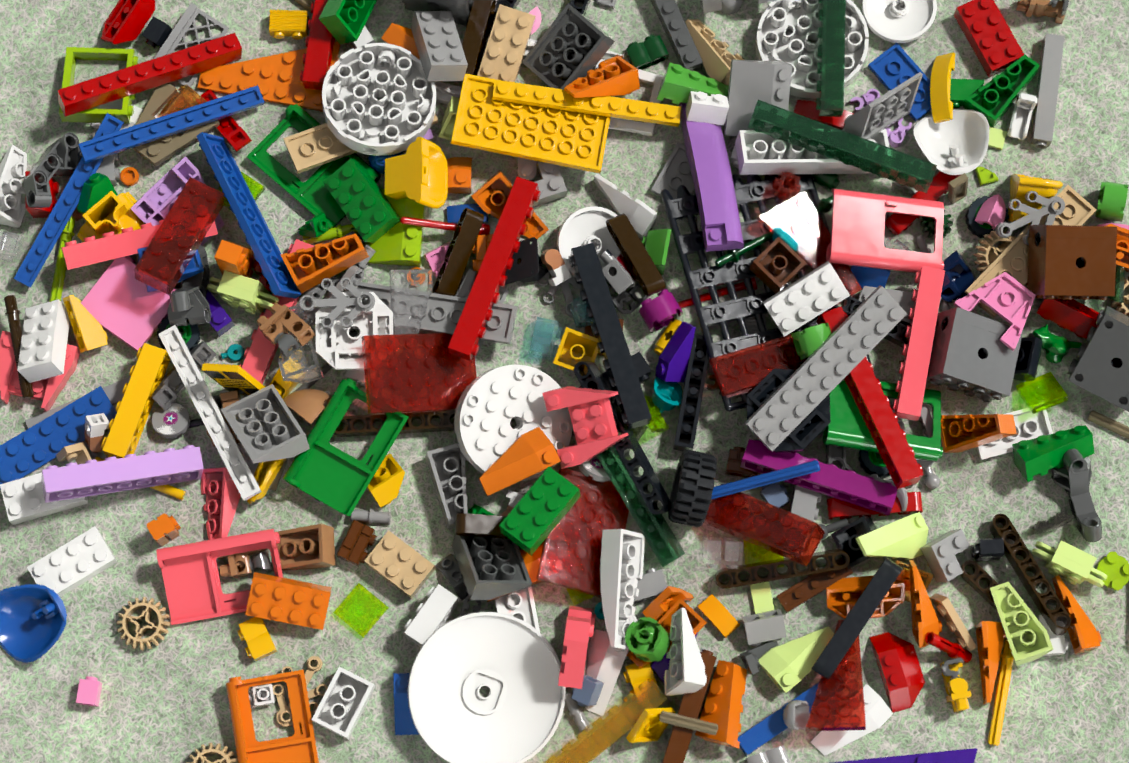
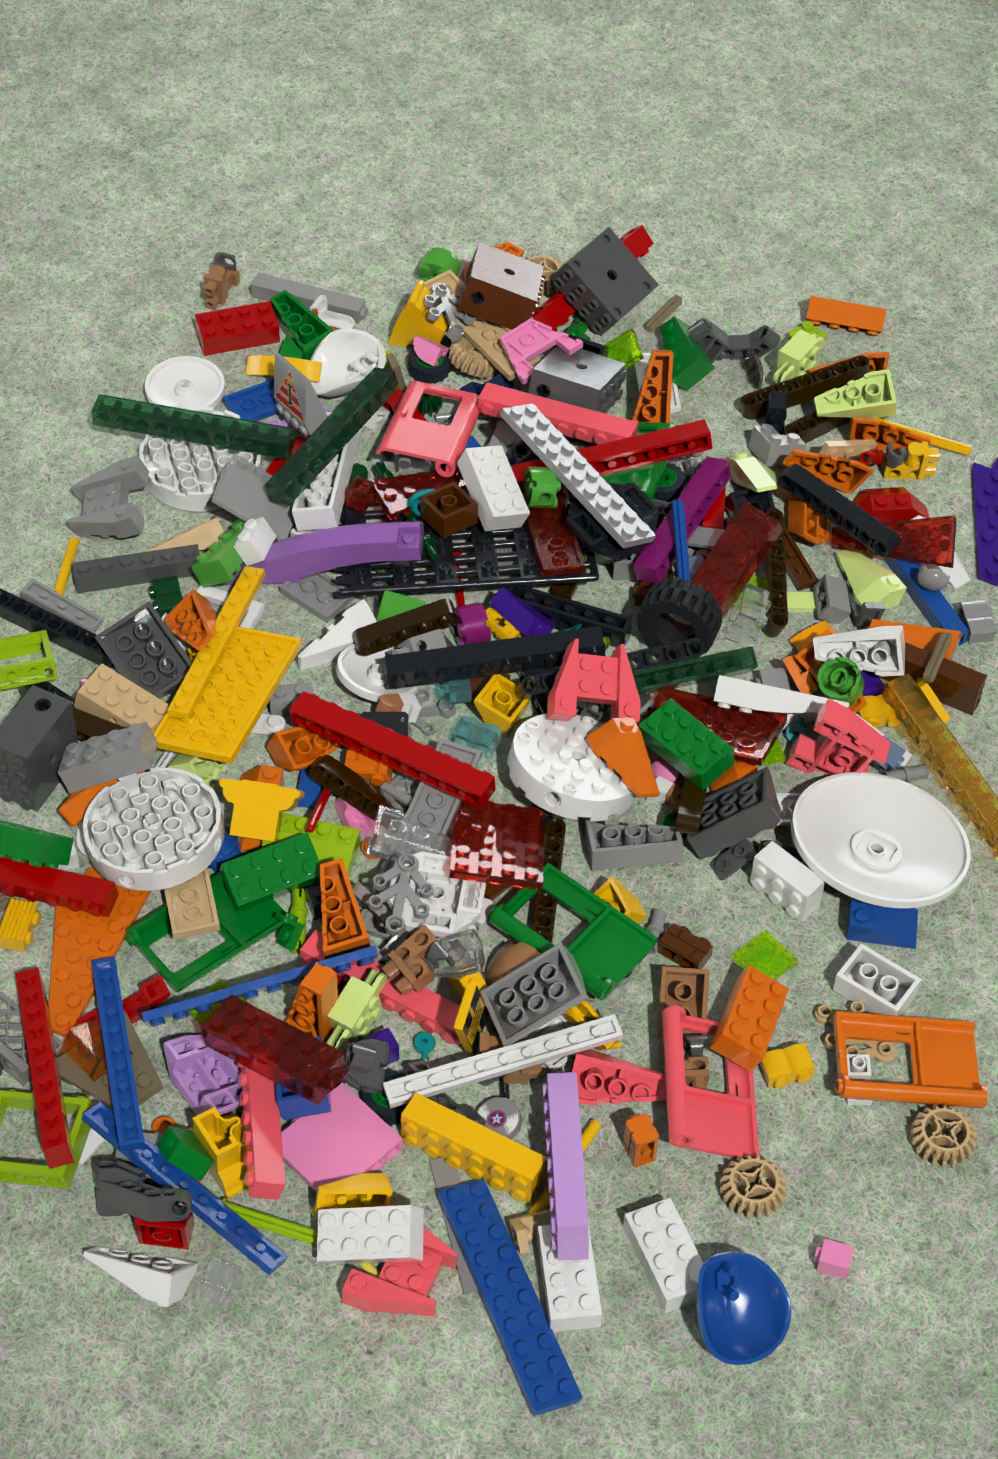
camera: 80 degrees left, 25 degrees down
(16, 335) = (370, 1267): dark brown axle -> none
(94, 431) = (499, 1199): white leg -> none
(400, 564) = (718, 907): tan brick -> none

